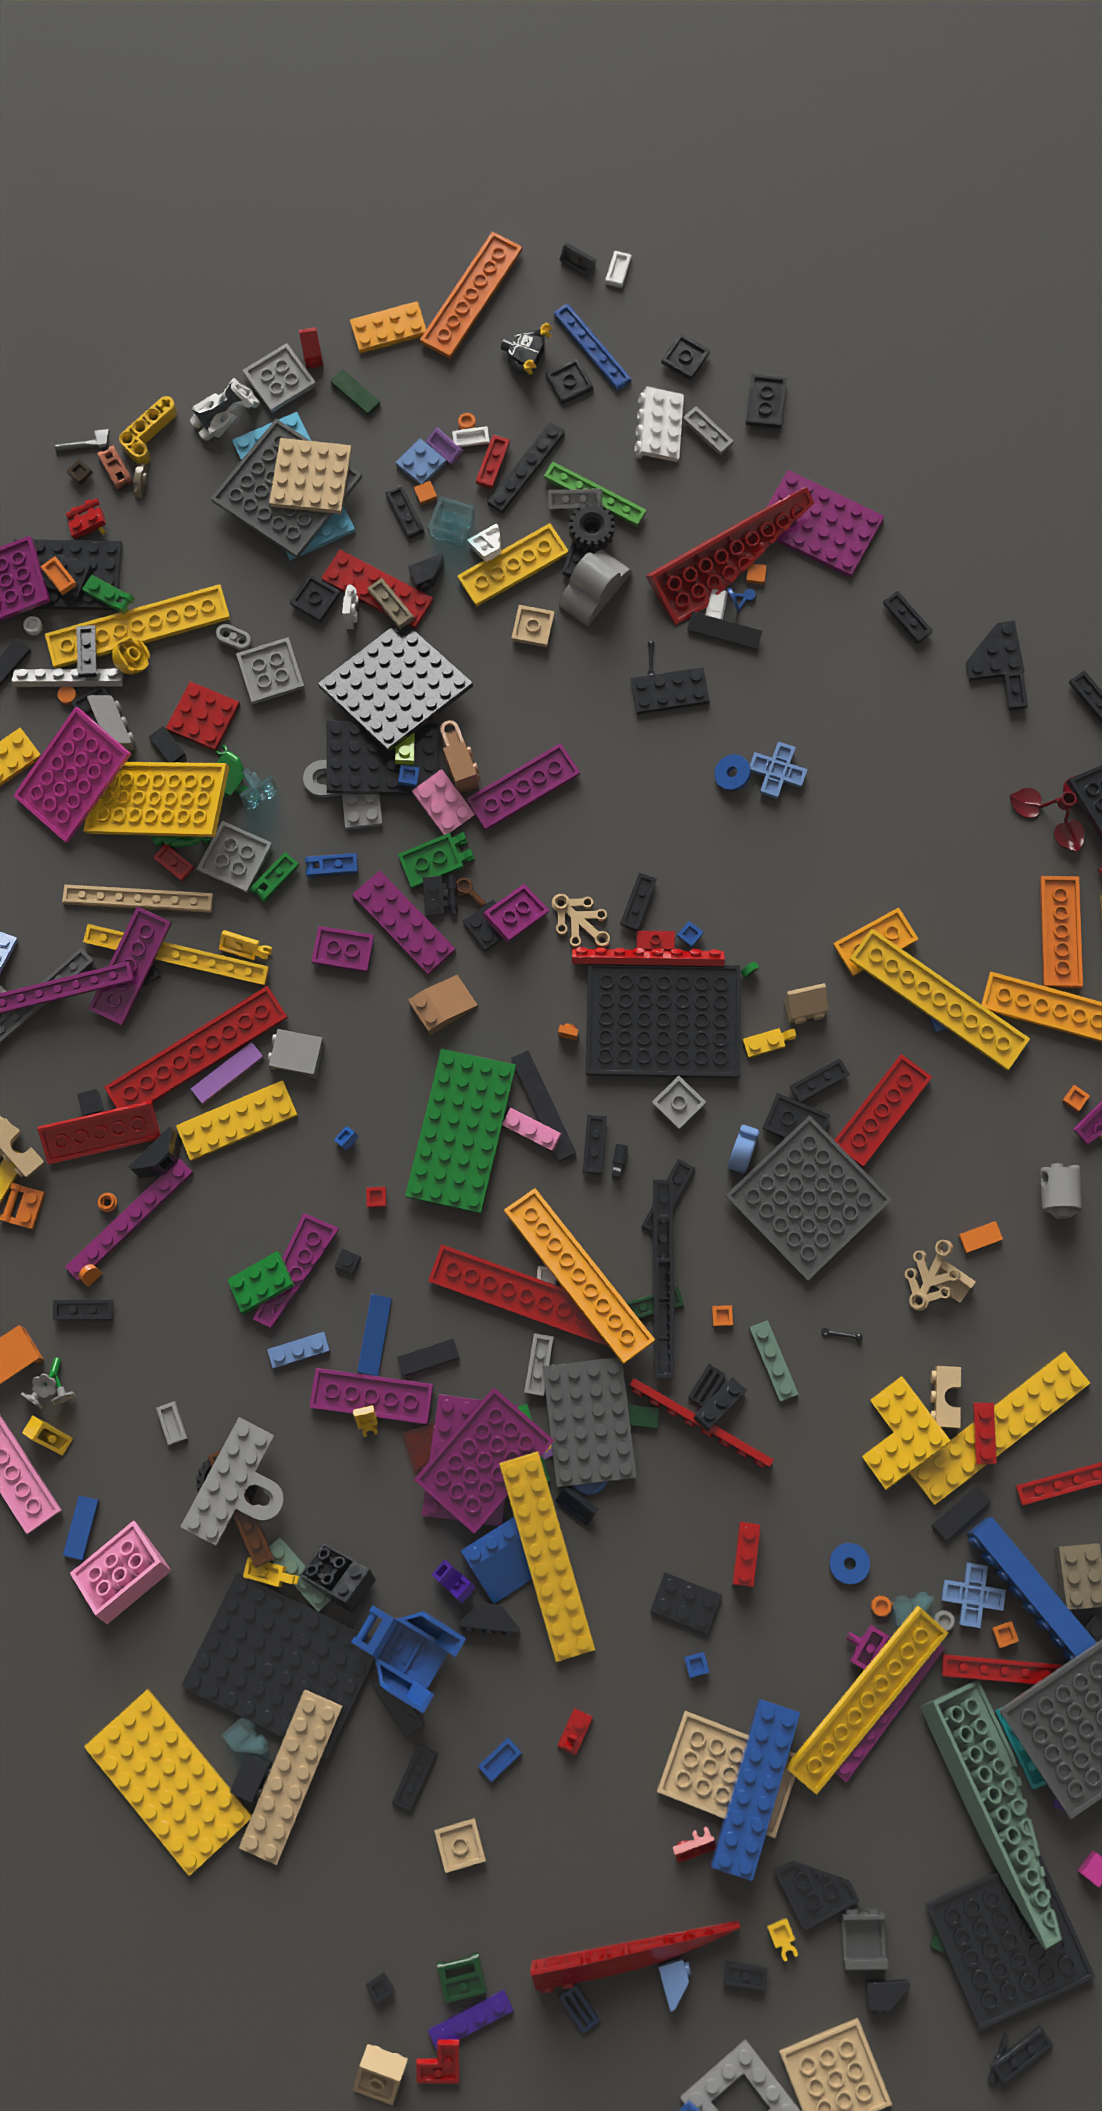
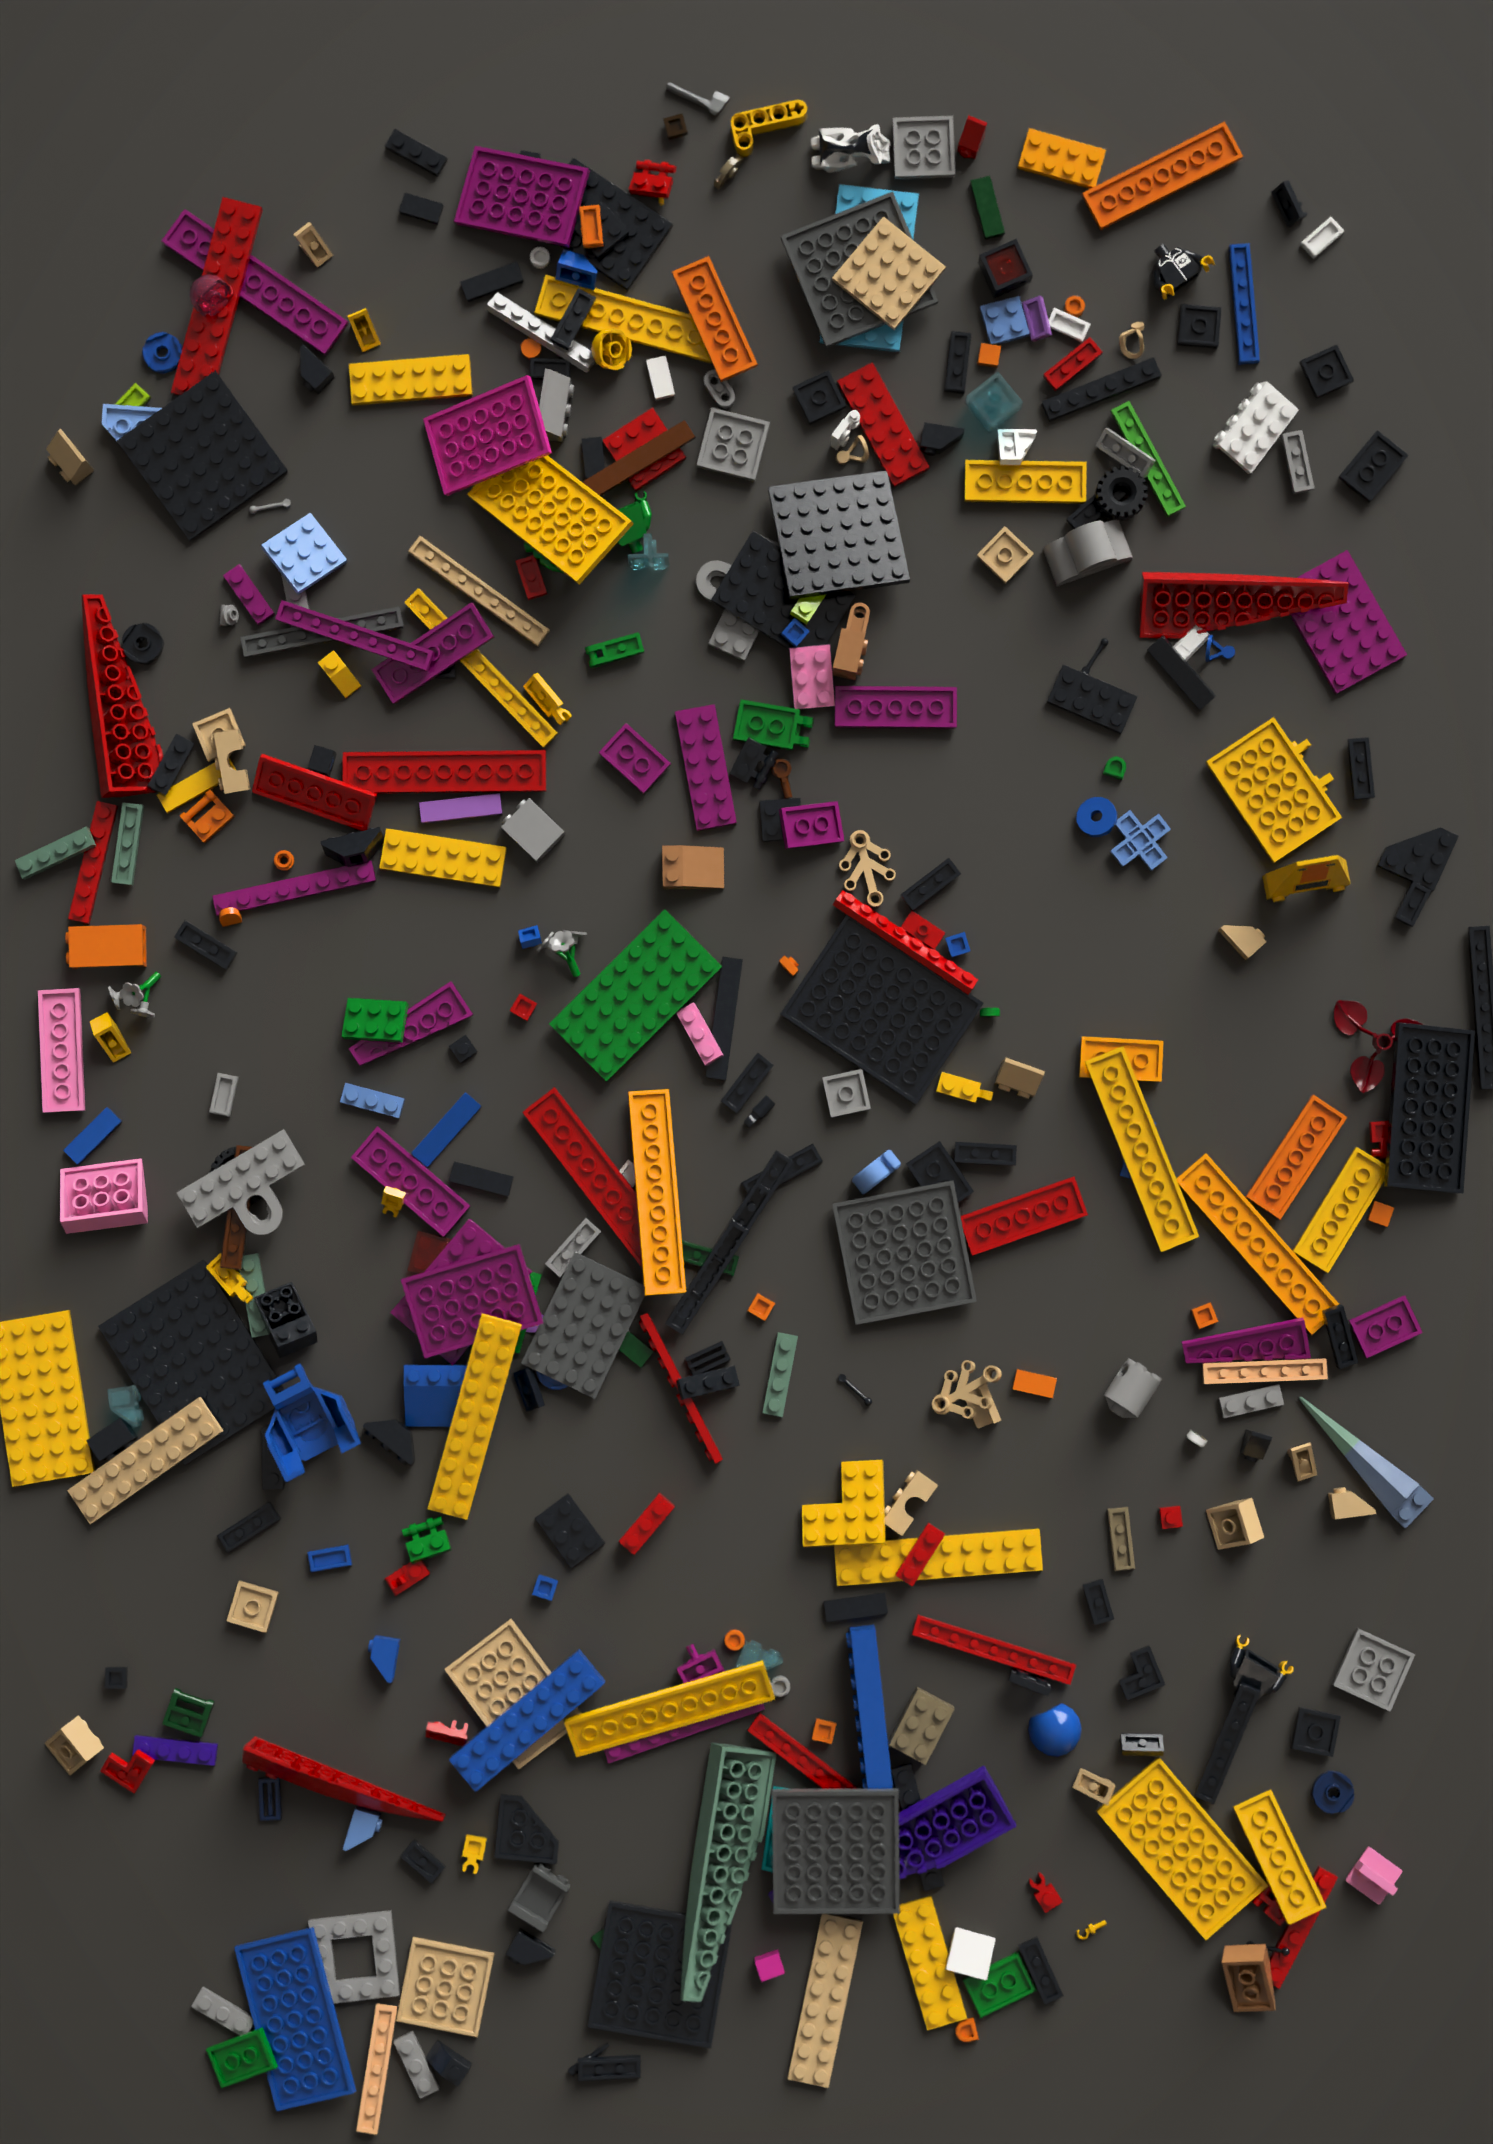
camera: 30 degrees right, 10 degrees up
(64, 1028) = (339, 674): none -> yellow slope
(67, 615) = (576, 270): none -> blue slope
(108, 594) = (627, 272): green plate -> none
(115, 467) = (711, 143): copper plate -> none
(182, 656) = (660, 378): none -> white tile
(197, 587) = (714, 319): none -> orange plate
(205, 720) = (640, 458): none -> reddish brown tile
(234, 857) = (590, 608): light grey plate -> none
(331, 865) = (674, 671): blue plate -> none
(361, 630) = (842, 456): none -> tan piece
(376, 1122) = (561, 943): none -> light grey plant
(390, 603) = (885, 449): dark tan tile -> none
(397, 423) = (1005, 268): none -> piece
(453, 1581) = (383, 1386): dark purple brick -> none
(526, 408) = (1135, 327): none -> tan piece
(576, 1693) = (429, 1545): none -> green plate
(599, 1813) = (384, 1655): none -> blue slope
(722, 729) = (1115, 768): none -> green tile
(756, 574) = (1248, 635): orange tile -> none
(853, 671) = (1274, 789): none -> yellow hinge
(861, 1560) = (735, 1599): blue tile -> none
(906, 794) = (1243, 938): none -> tan slope
(922, 713) = (1305, 876): none -> yellow wedge
(973, 1595) = (819, 1681): medium blue plate -> none

